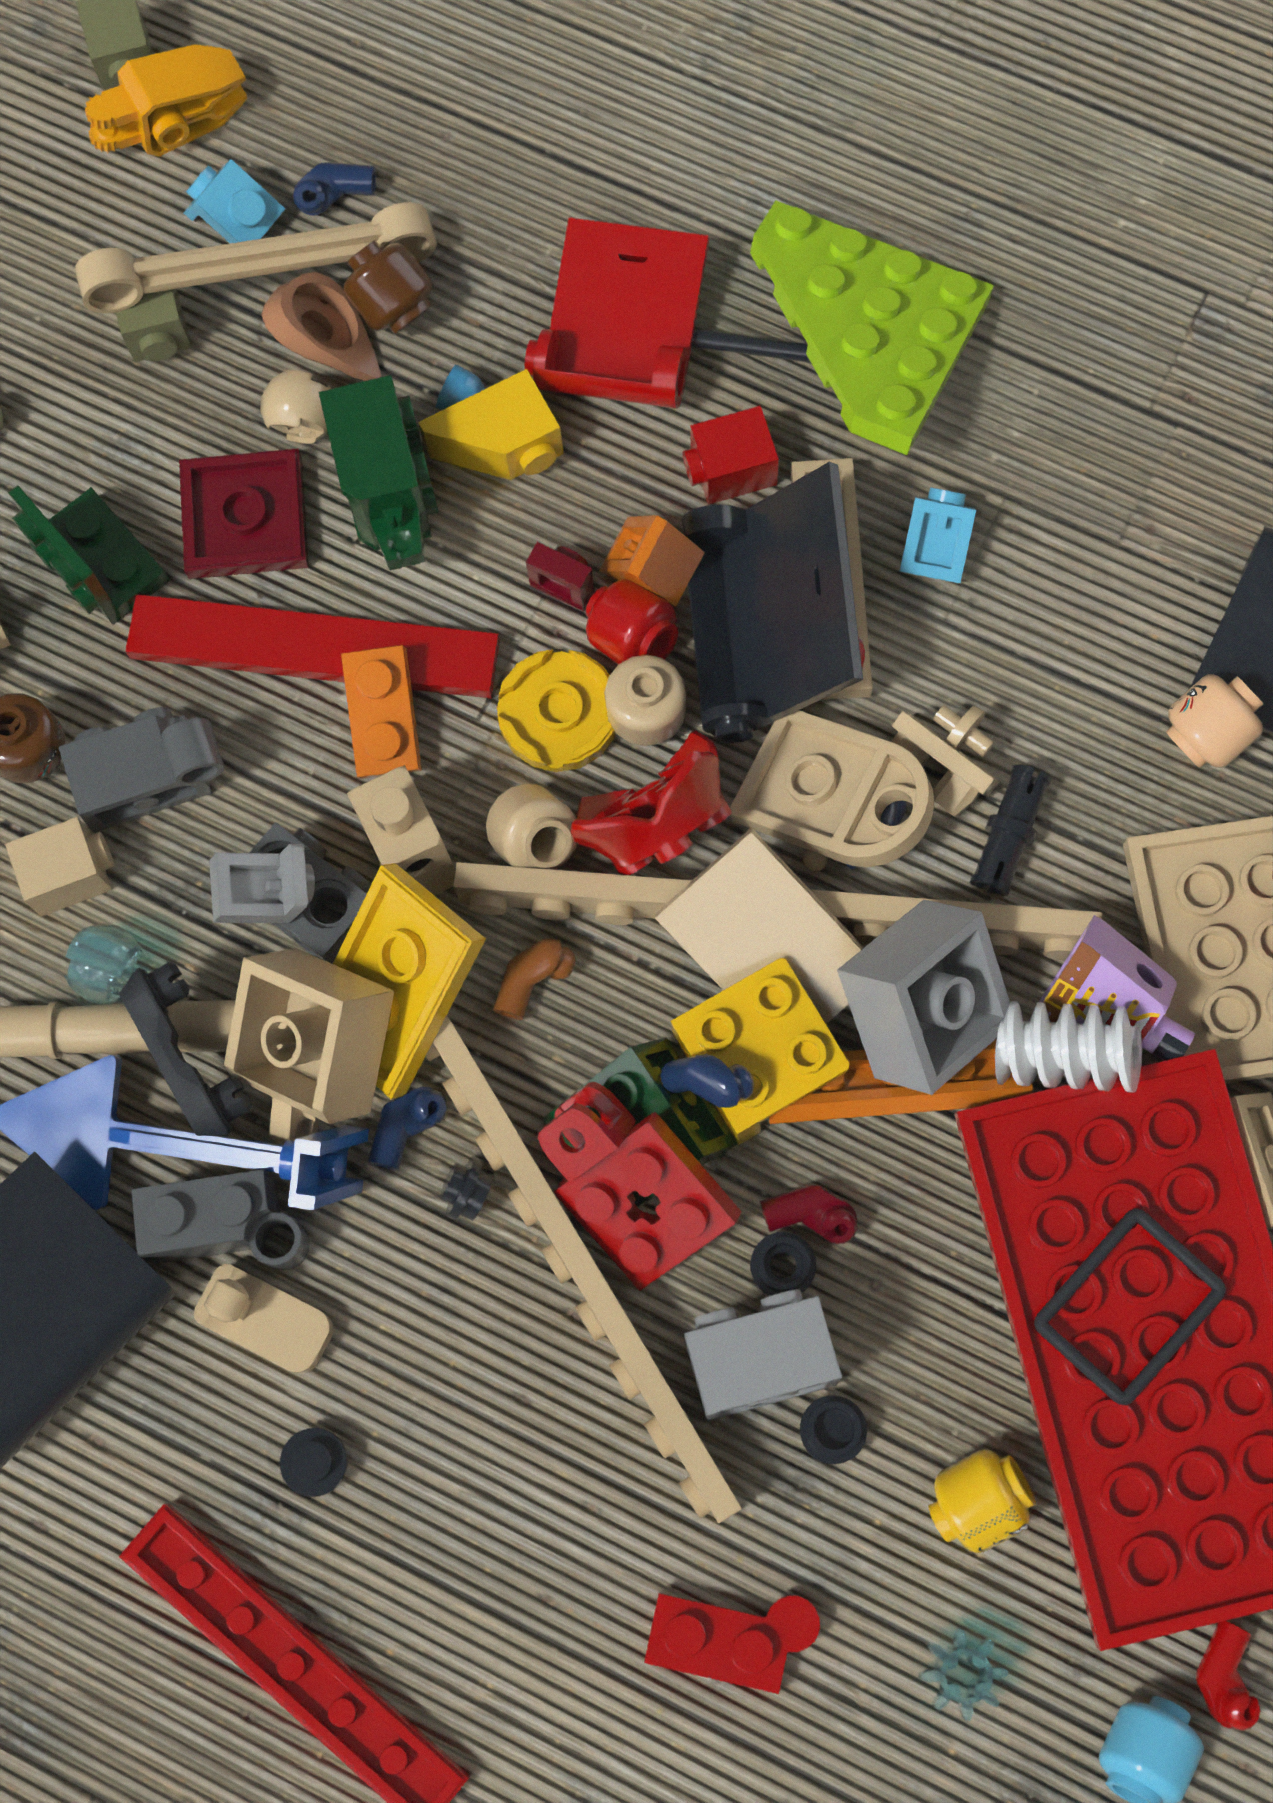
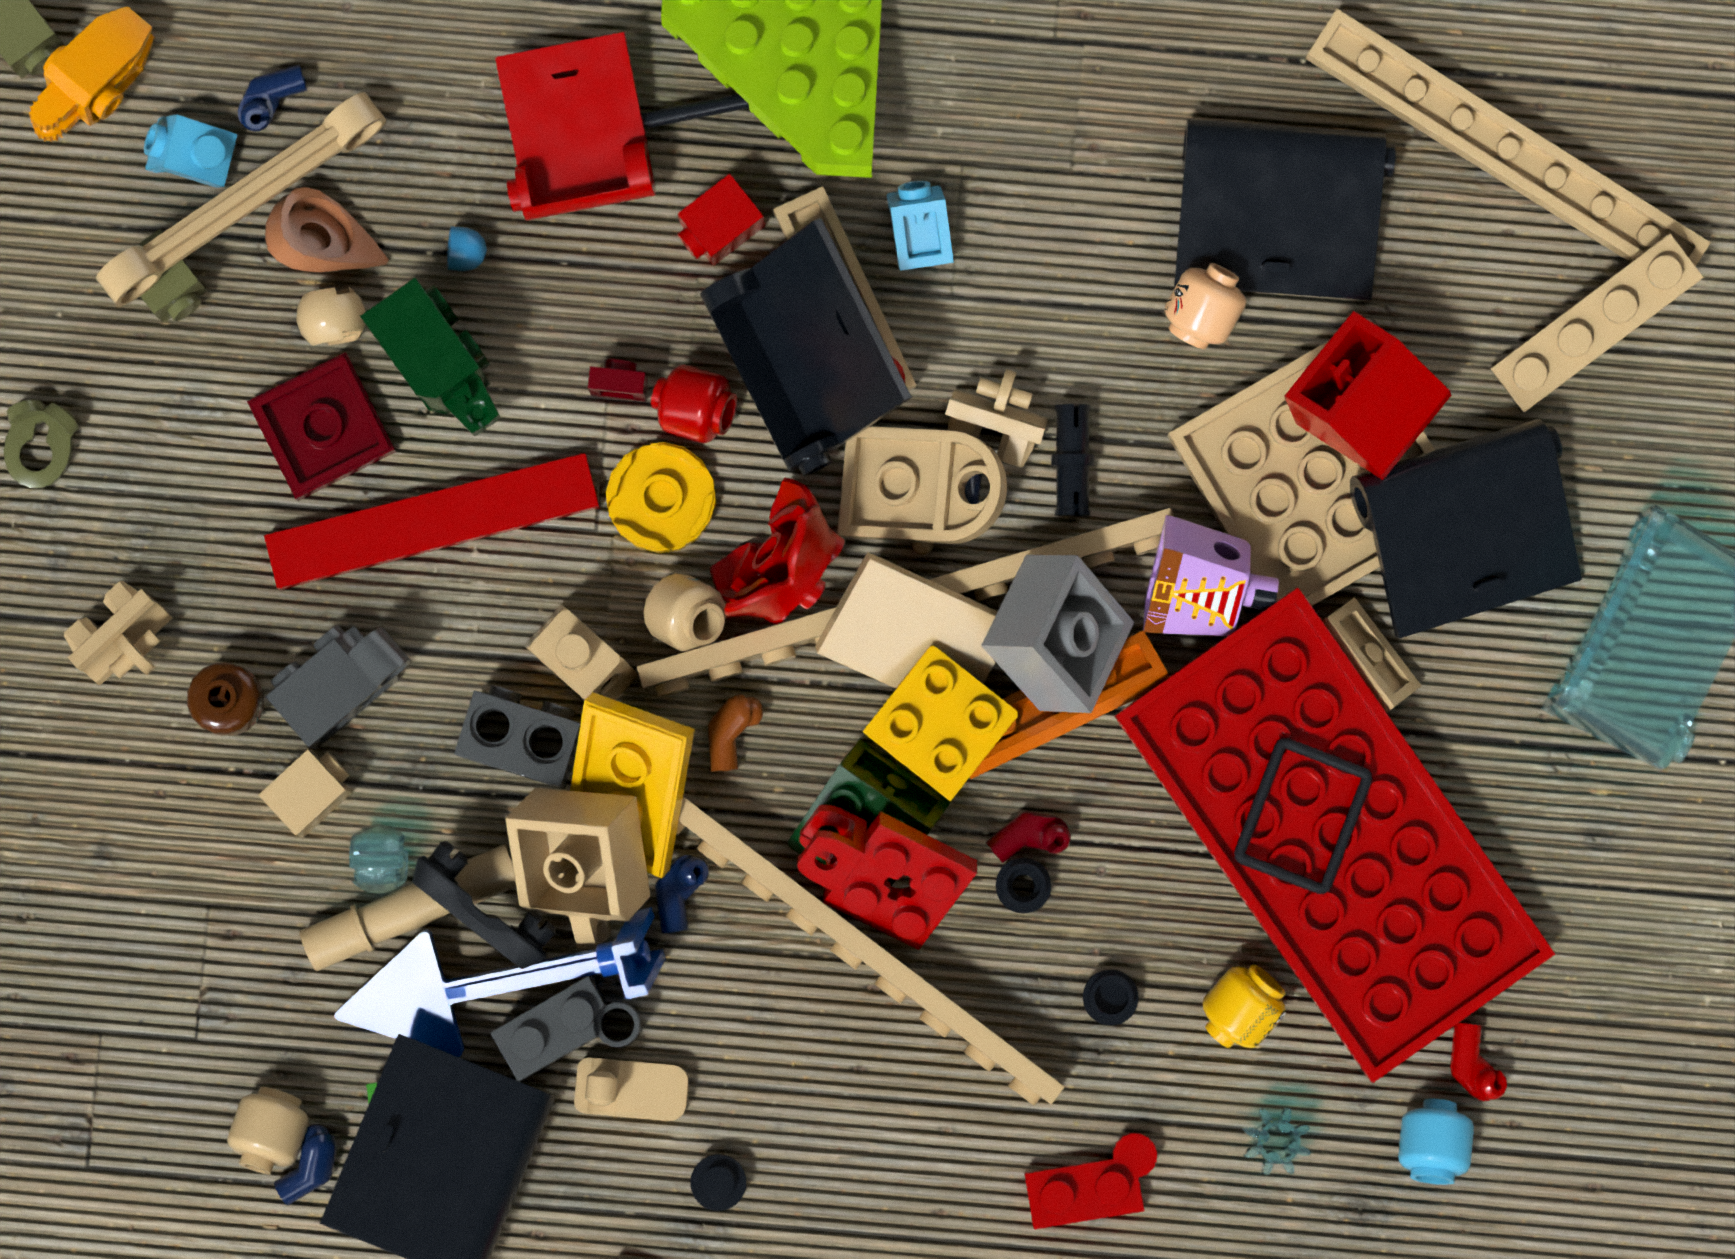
camera: 25 degrees left, 10 degrees up
(91, 553) = (214, 510): dark green bracket -> none
(260, 886) = (490, 751): light grey bracket -> none
(381, 711) = (516, 559): orange plate -> none
(388, 286) = (364, 179): reddish brown head -> none
(466, 1189) = (751, 925): black plate -> none
(496, 430) = (512, 273): yellow slope -> none
(645, 700) = (733, 466): tan head -> none
(653, 556) = (688, 342): orange slope -> none
(708, 1079) = (912, 769): dark blue arm -> none
(761, 1355) = (1036, 966): light grey brick -> none
(1068, 1049) = (1184, 635): white piece -> none

